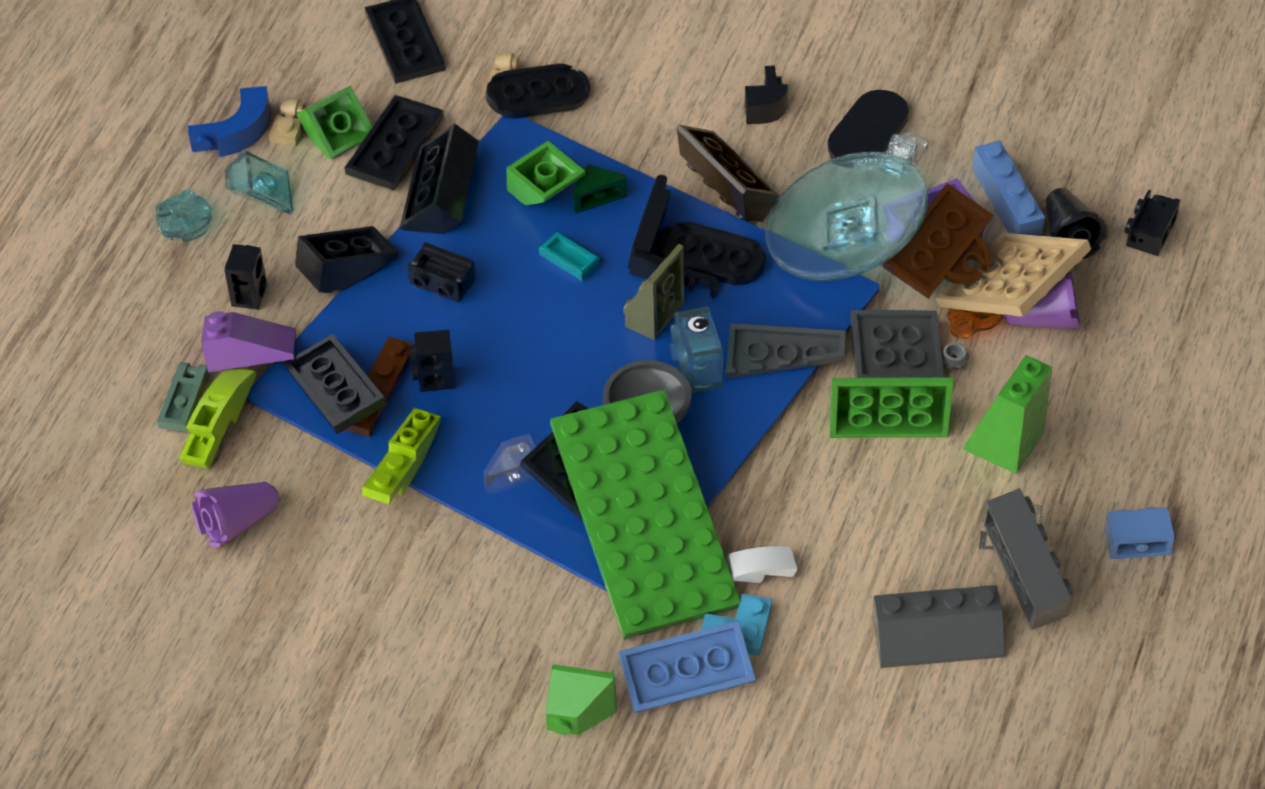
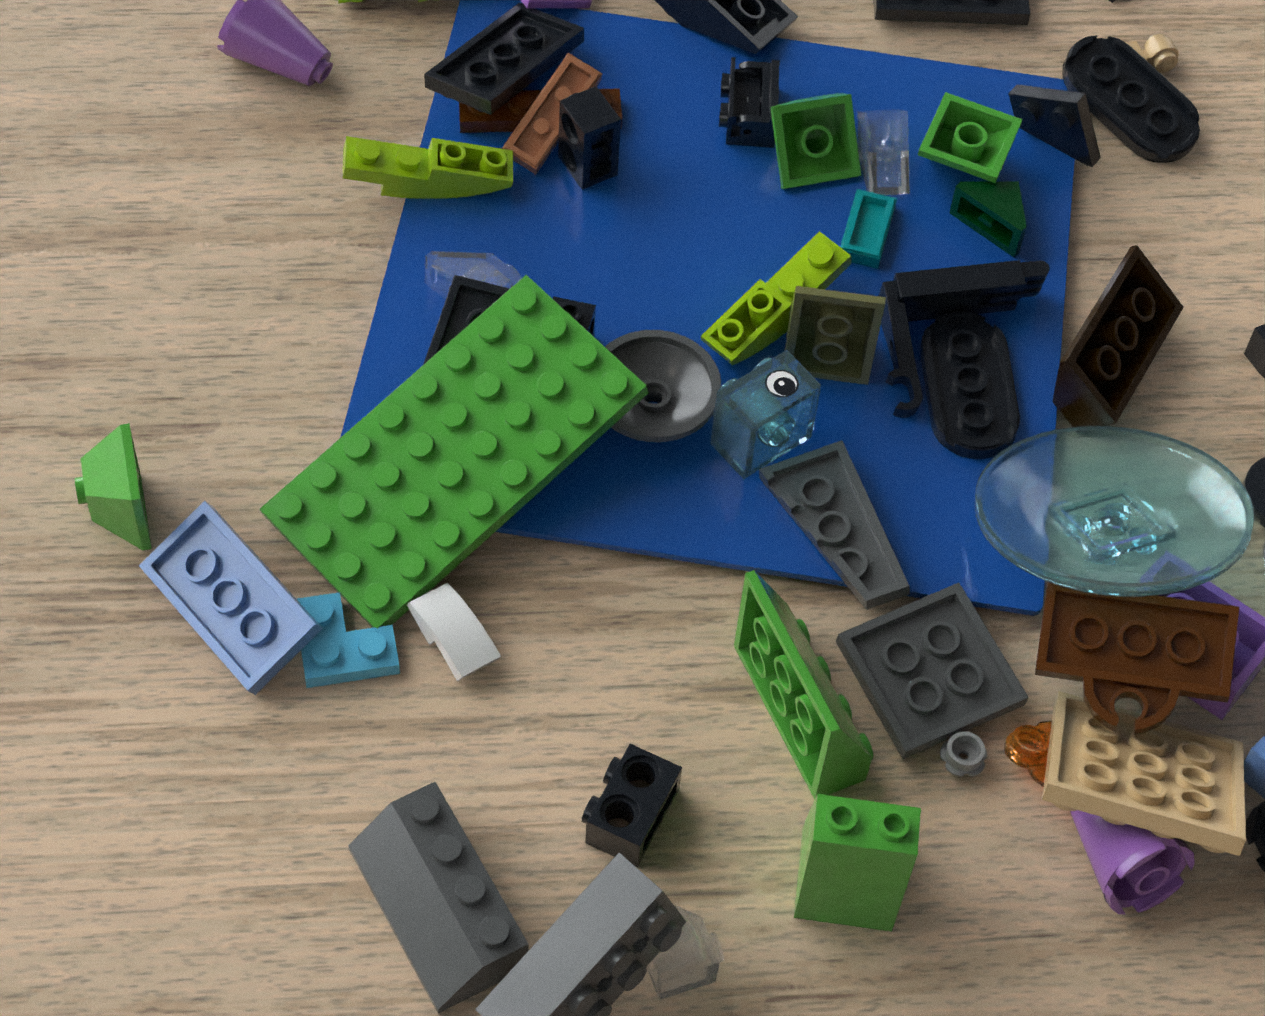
camera: 60 degrees right, 5 degrees up
(395, 375) = (539, 128): none -> nougat tile
(440, 182) = (902, 51): black slope -> none
(492, 247) = (815, 140): none -> bright green slope
(517, 221) = (884, 150): none -> clear slope
(546, 125) = (1057, 119): none -> black wing
(607, 316) = (765, 308): none -> lime slope
(920, 516) = (640, 807): none -> black brick

